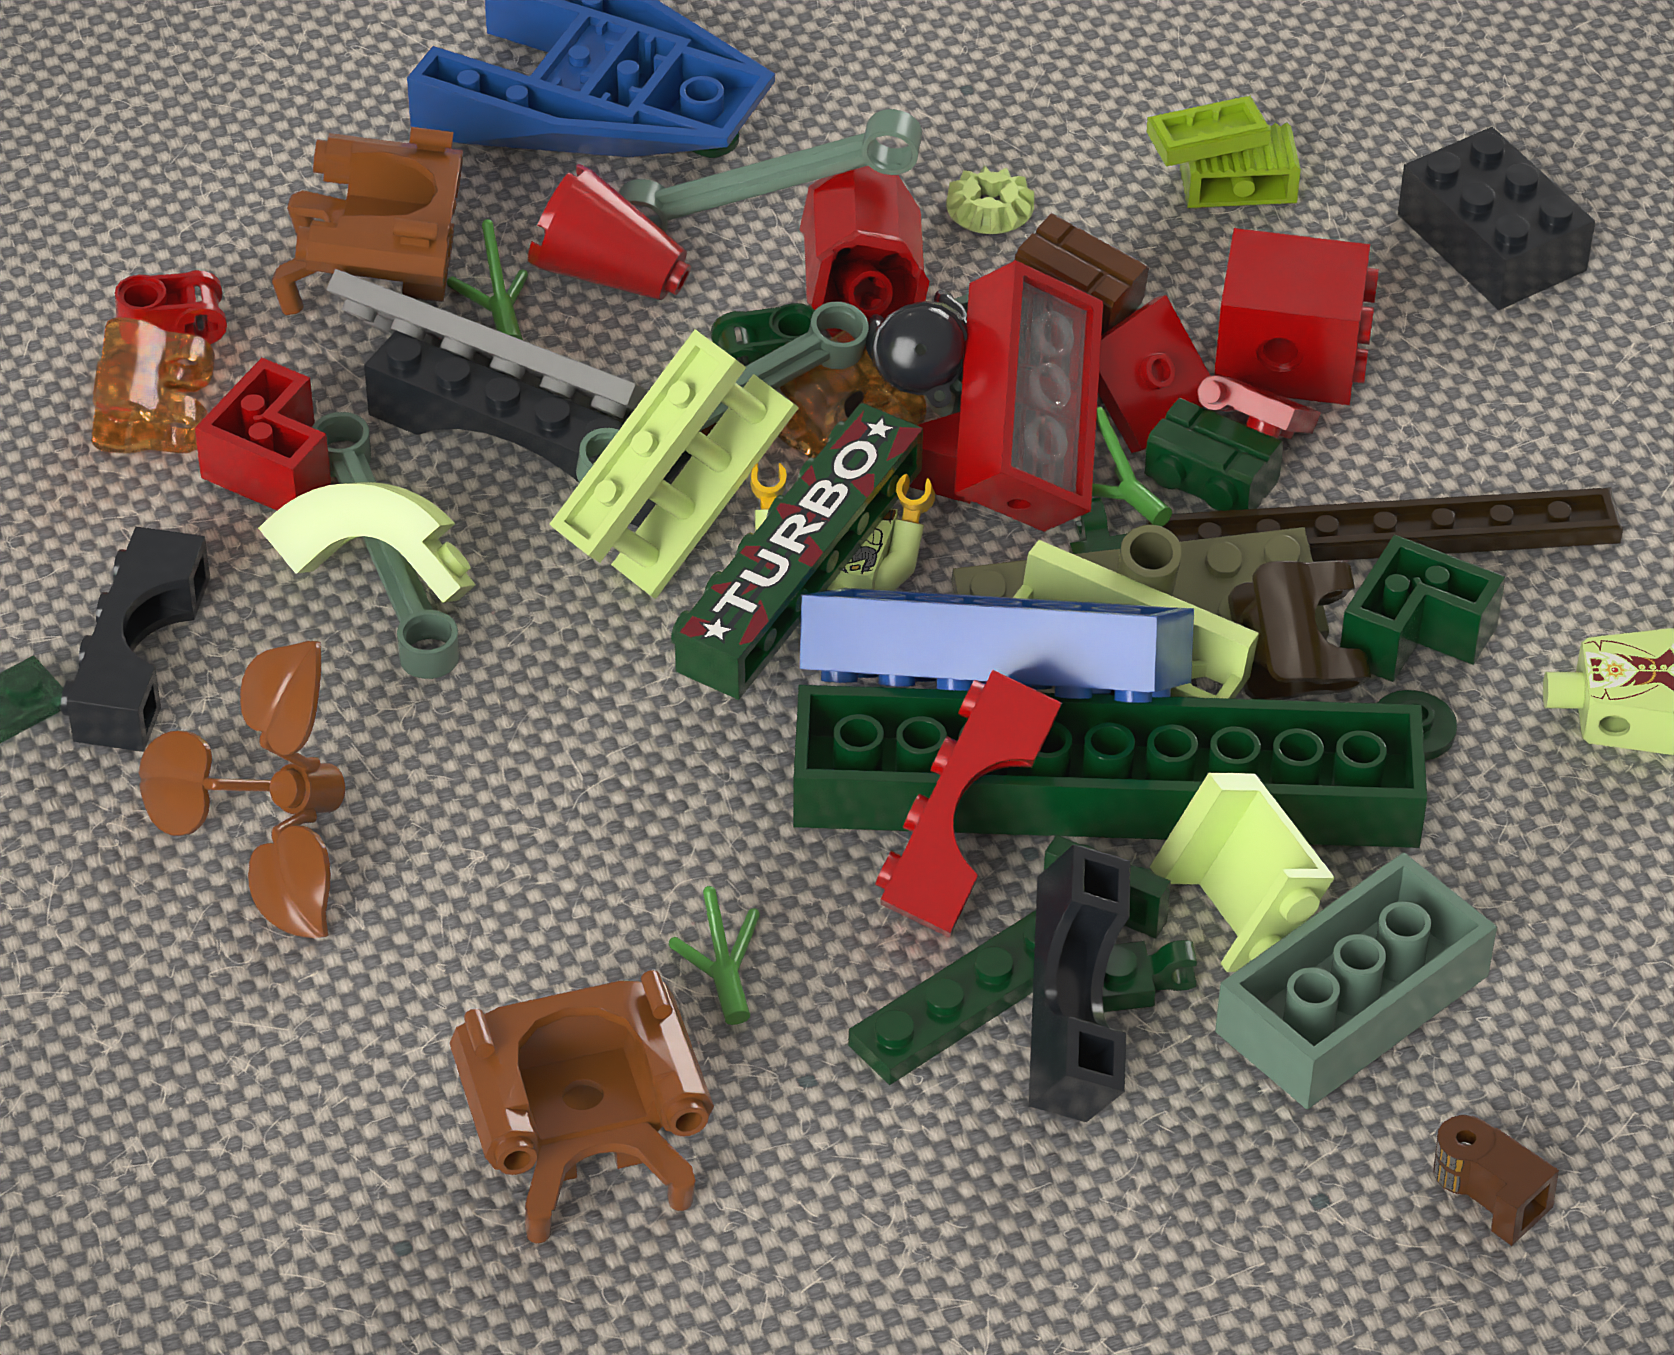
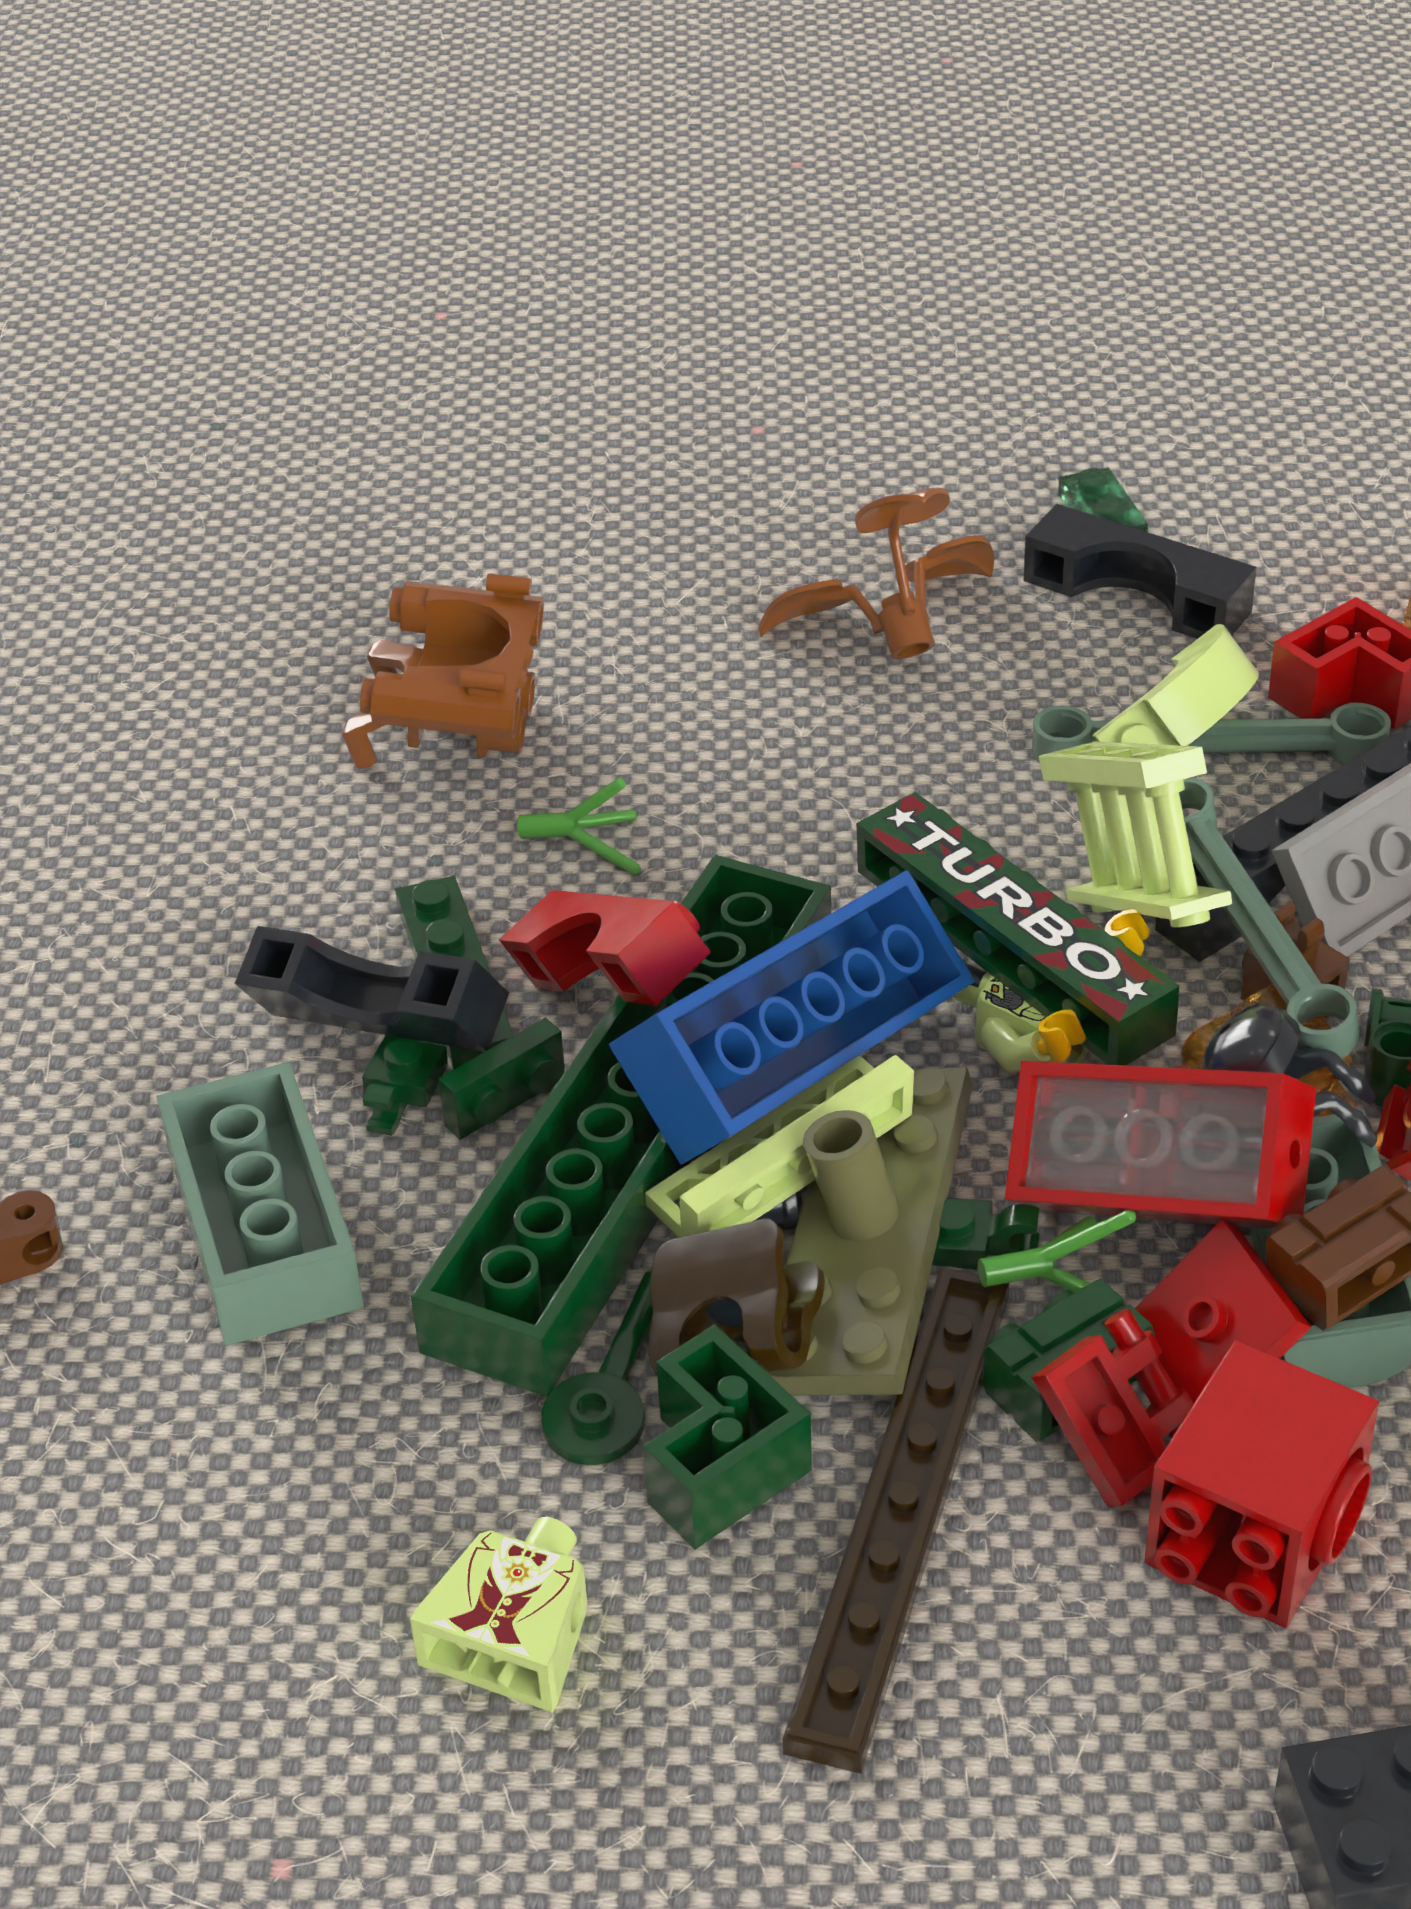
camera: 115 degrees right, 5 degrees down
(1246, 862) = (419, 1163): yellowish green panel -> none

